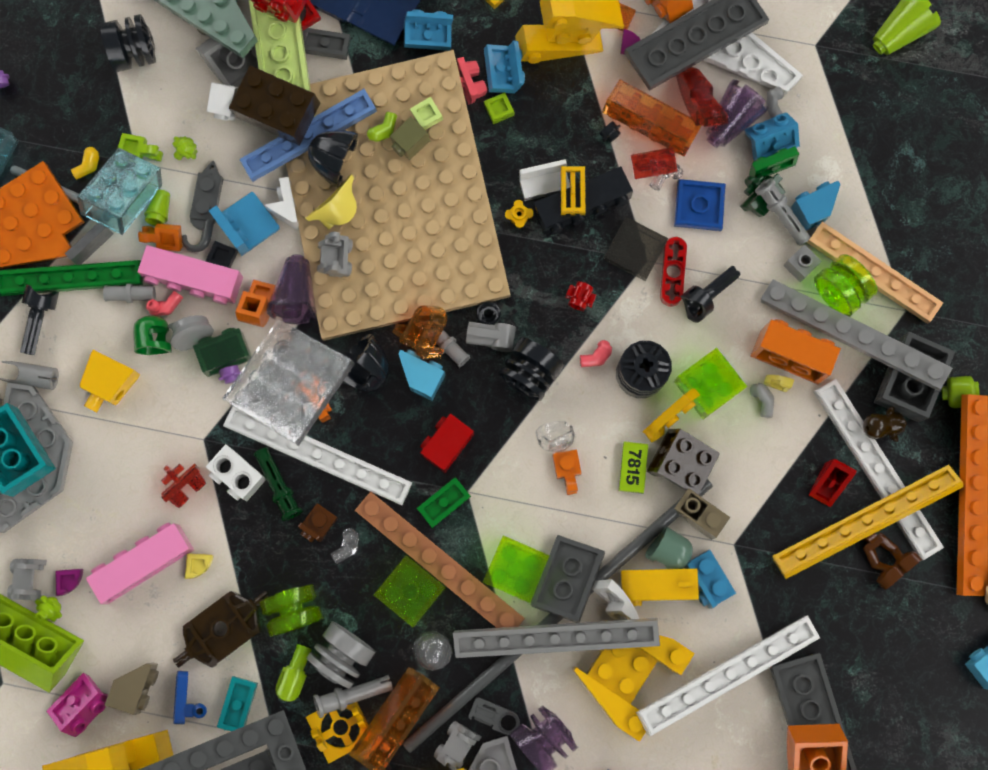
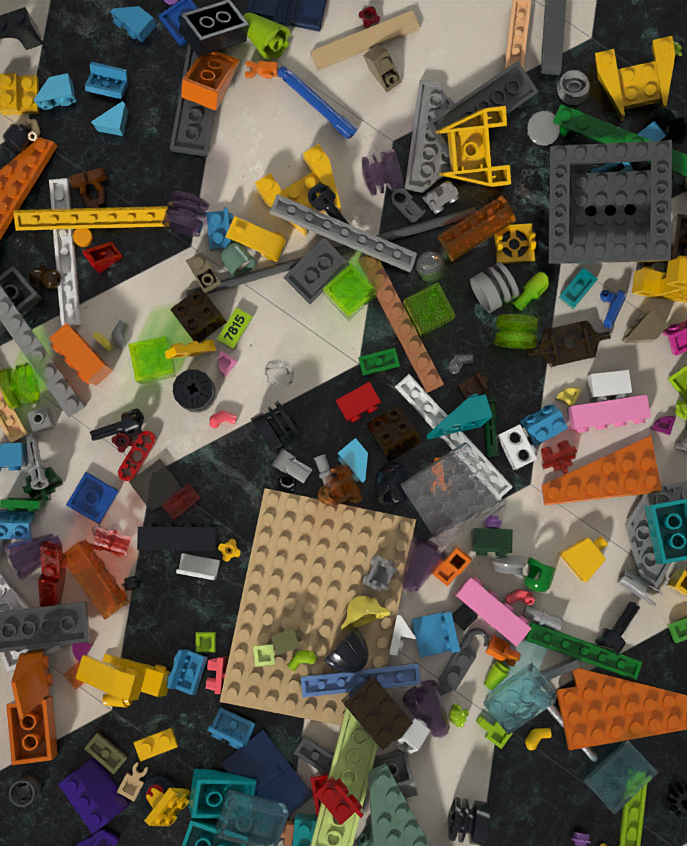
camera: 155 degrees left, 5 degrees up
(100, 494) = (619, 474): none -> orange wing
(152, 598) = (609, 384): none -> white brick
(214, 515) = (544, 424): none -> dark azure bracket
(222, 140) = (427, 705): none -> clear purple cone
(308, 483) = (469, 415): none -> teal slope
(341, 698) = (507, 259): light grey pin -> none
(390, 426) = (394, 433): none -> dark brown bracket
(567, 467) = (281, 349): orange plate -> none
(573, 210) = (189, 530): yellow tile -> none
(580, 296) = (213, 466): red gear -> none
(595, 665) = (325, 201): none -> black piece
(598, 241) = (181, 501): none -> clear red hips
(619, 604) = (290, 239): white slope -> none
(624, 421) = (225, 363): none -> bright pink tile
(696, 273) = (122, 446): none -> dark red plate
(727, 675) = (238, 160): white tile -> none
(759, 576) = (185, 213): none -> clear purple wheel
(866, 495) = (82, 237): none -> light orange tile
(906, 658) = (113, 120): none -> medium azure slope
(941, 705) = (107, 80): none -> dark azure bracket

